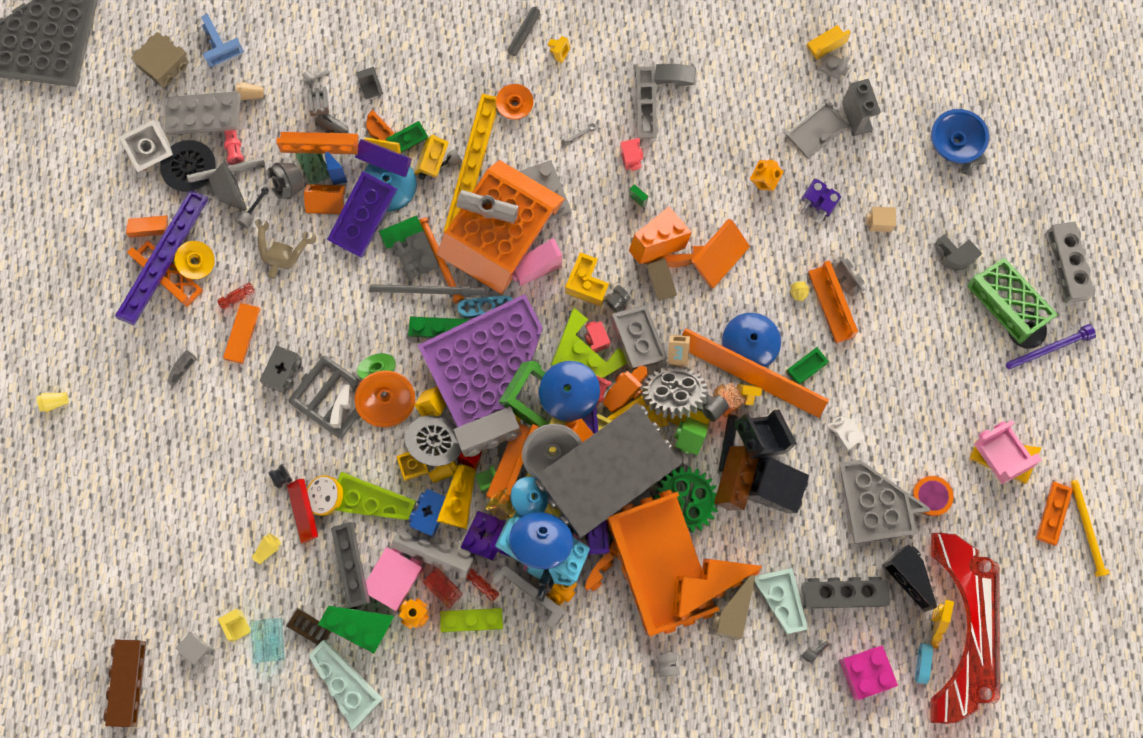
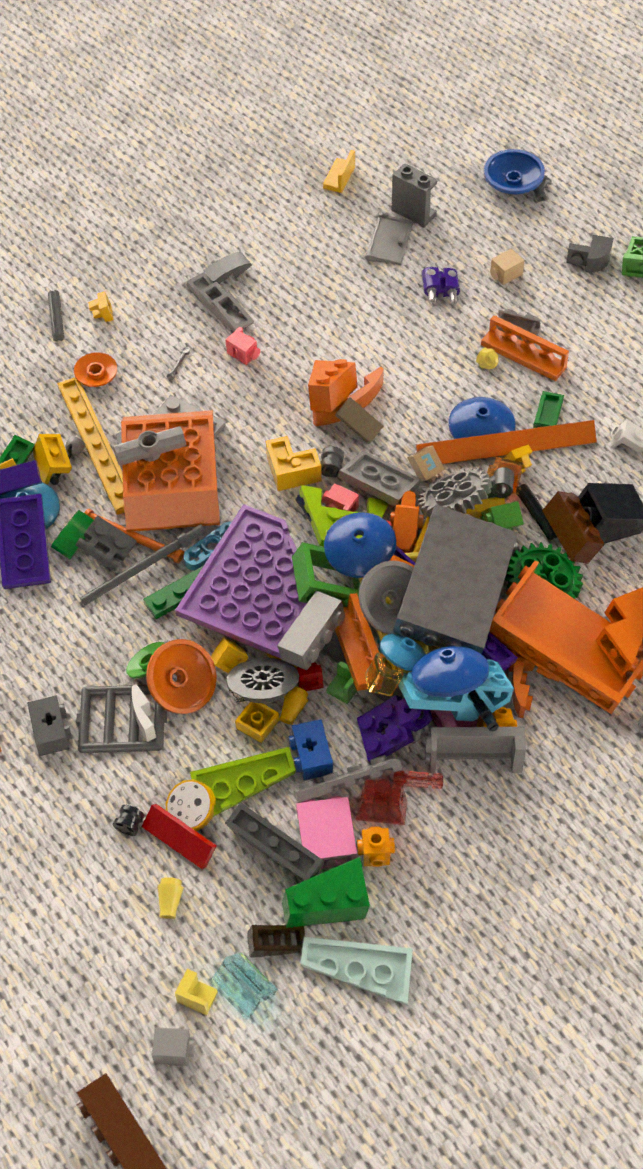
camera: 35 degrees left, 20 degrees down
(458, 498) = (330, 716): yellow wing -> none
(471, 620) = (436, 817): lime plate -> none
(538, 263) = (235, 472): bright pink slope -> none
(638, 195) = (278, 373): green tile -> none
(720, 253) = (394, 369): orange tile -> none
(765, 435) = (565, 474): black panel -> none
(766, 175) = (378, 291): light orange brick -> none
(834, 66) = (362, 187): light grey bracket -> none

